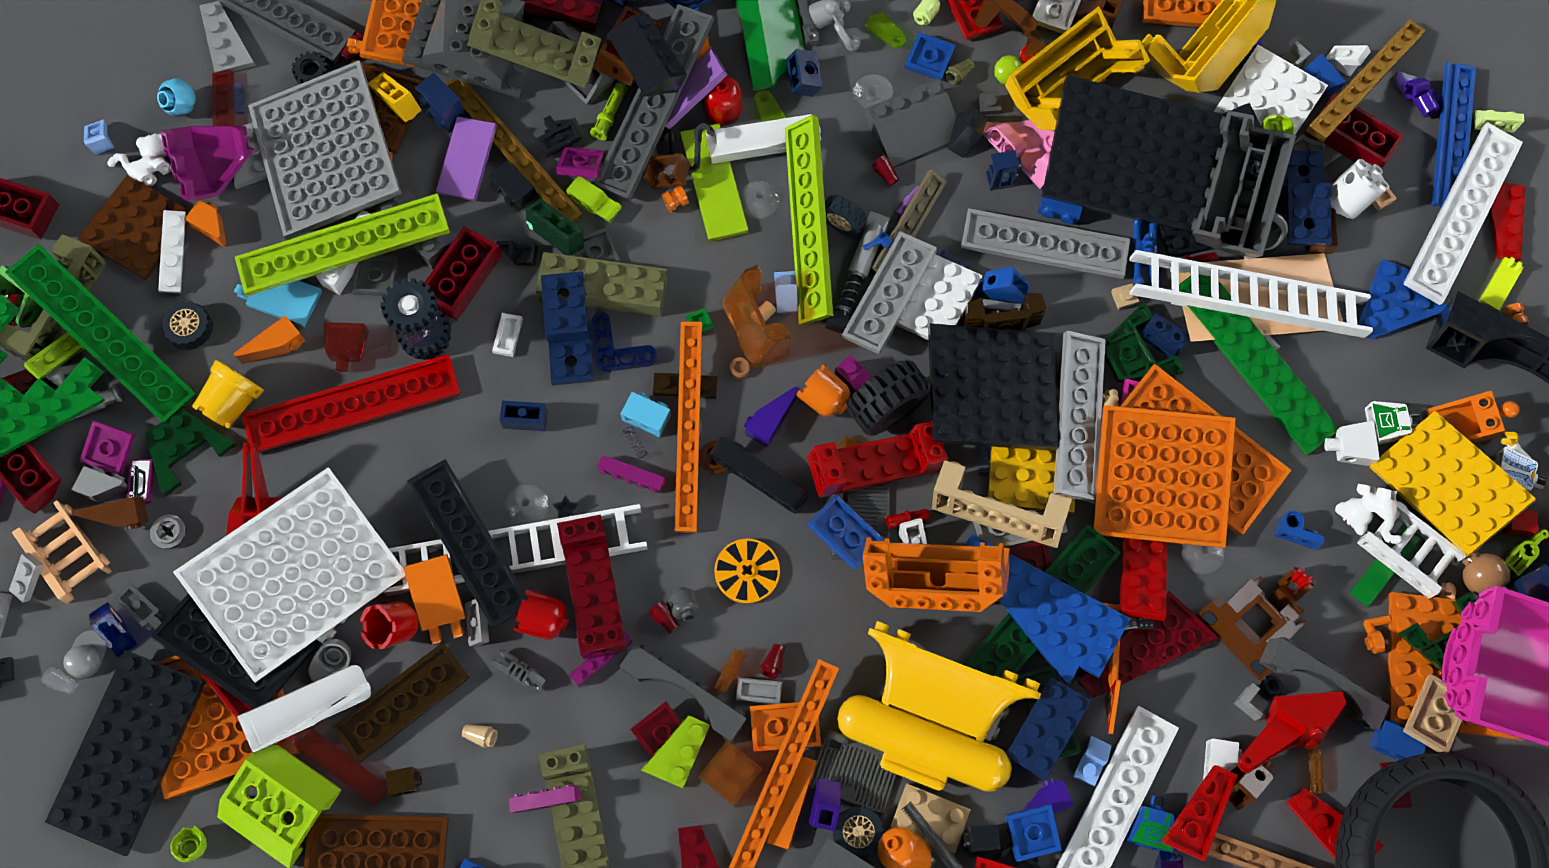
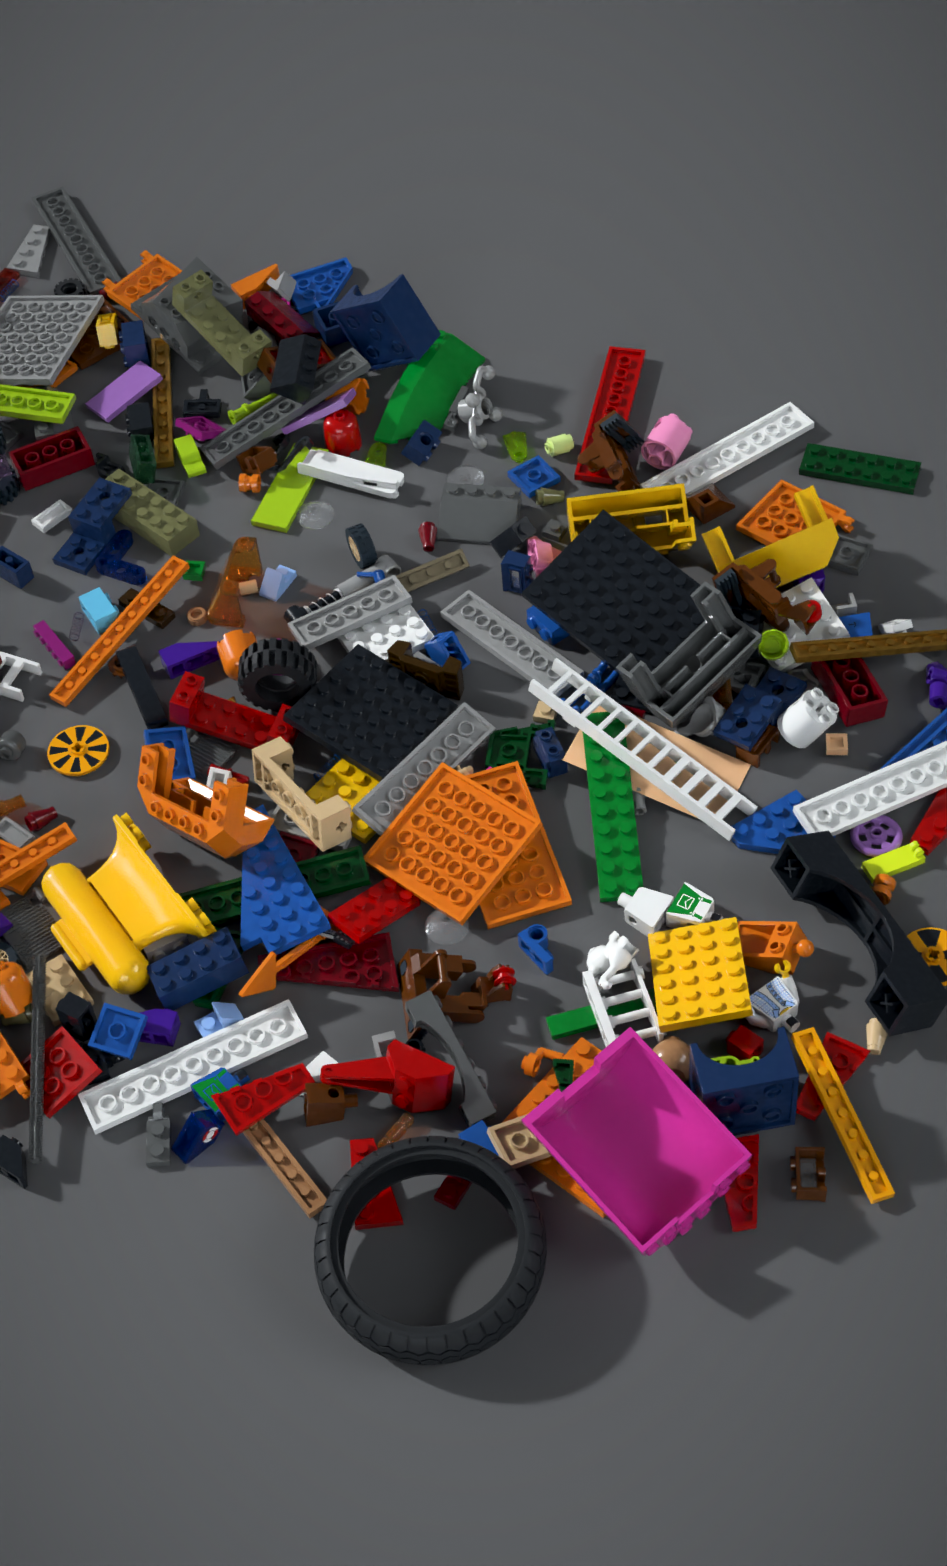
camera: 40 degrees right, 20 degrees down
(808, 221) = (328, 537): lime plate -> none
(1262, 94) = (748, 590): none -> reddish brown container
(1486, 273) = (865, 846): none -> medium lavender plate

